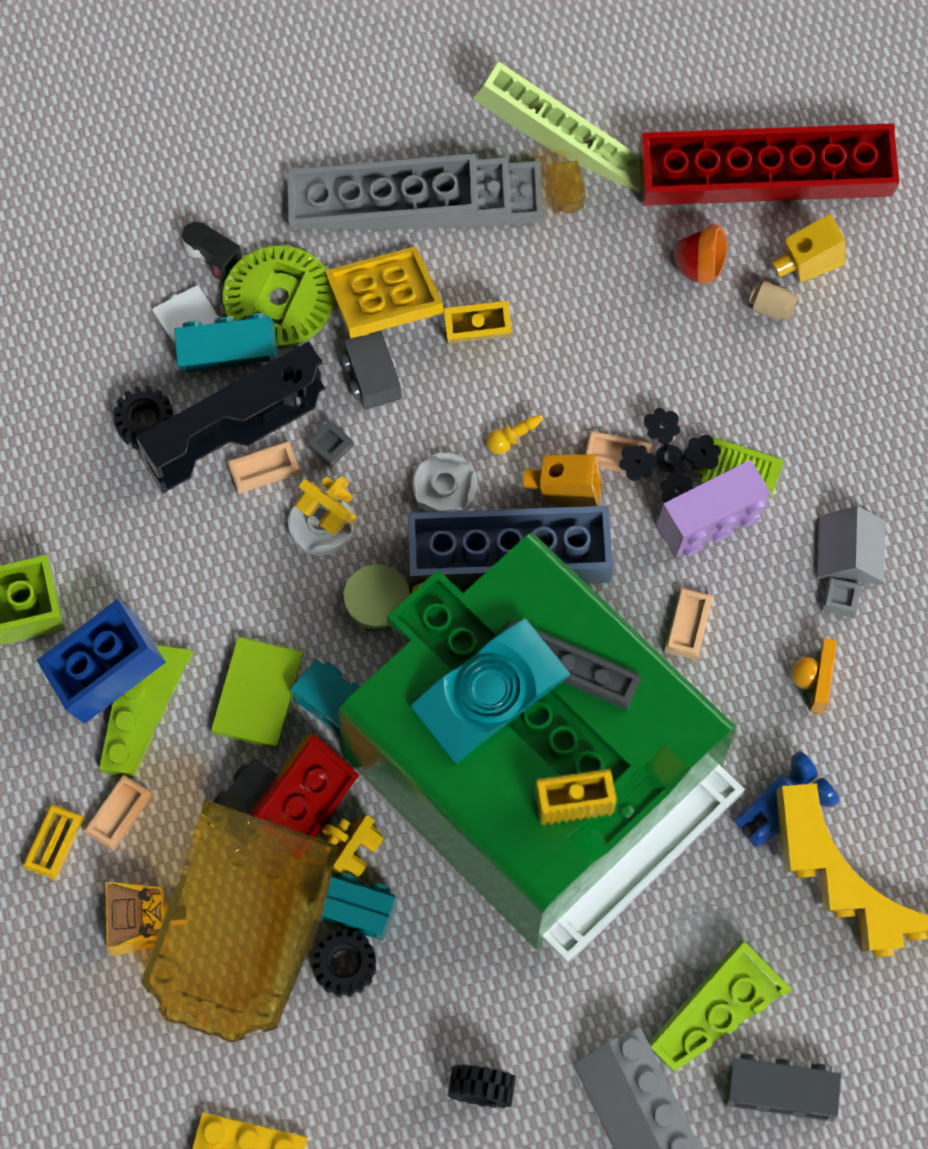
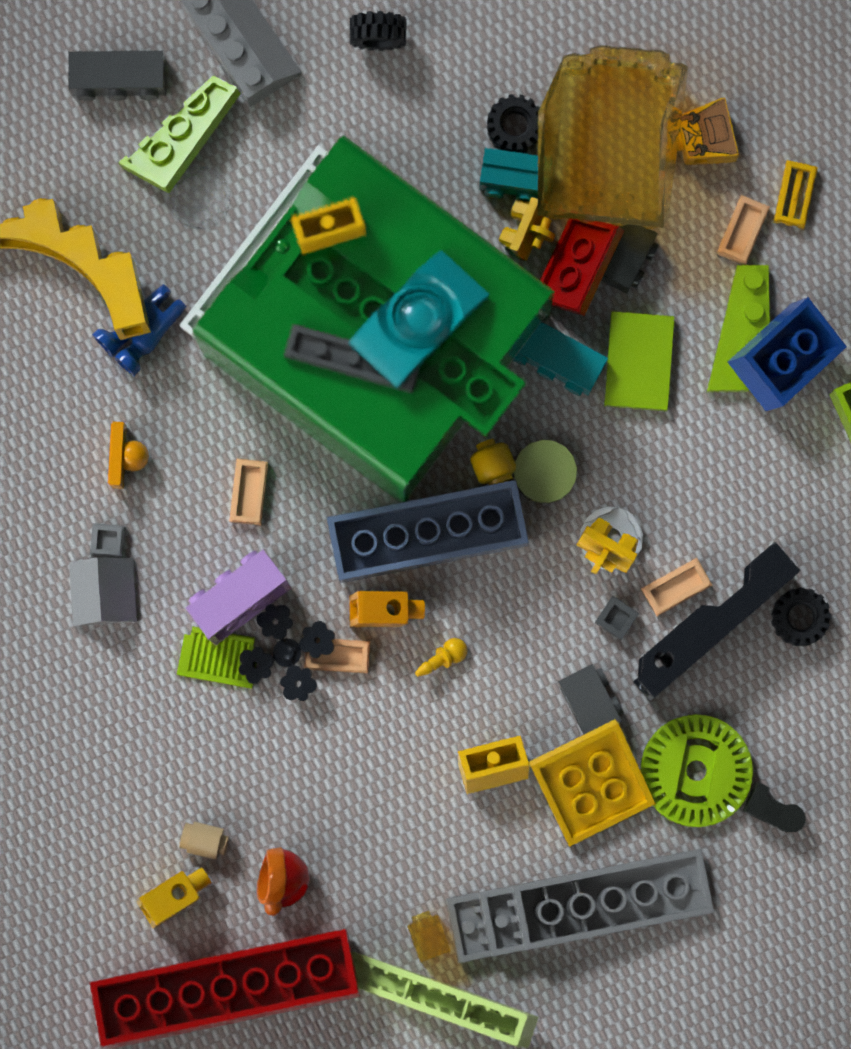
camera: 175 degrees right, 15 degrees up
(185, 307) = (780, 734): white piece -> none
(226, 343) = (736, 703): teal brick -> none
(444, 483) = (499, 596): white tile -> none

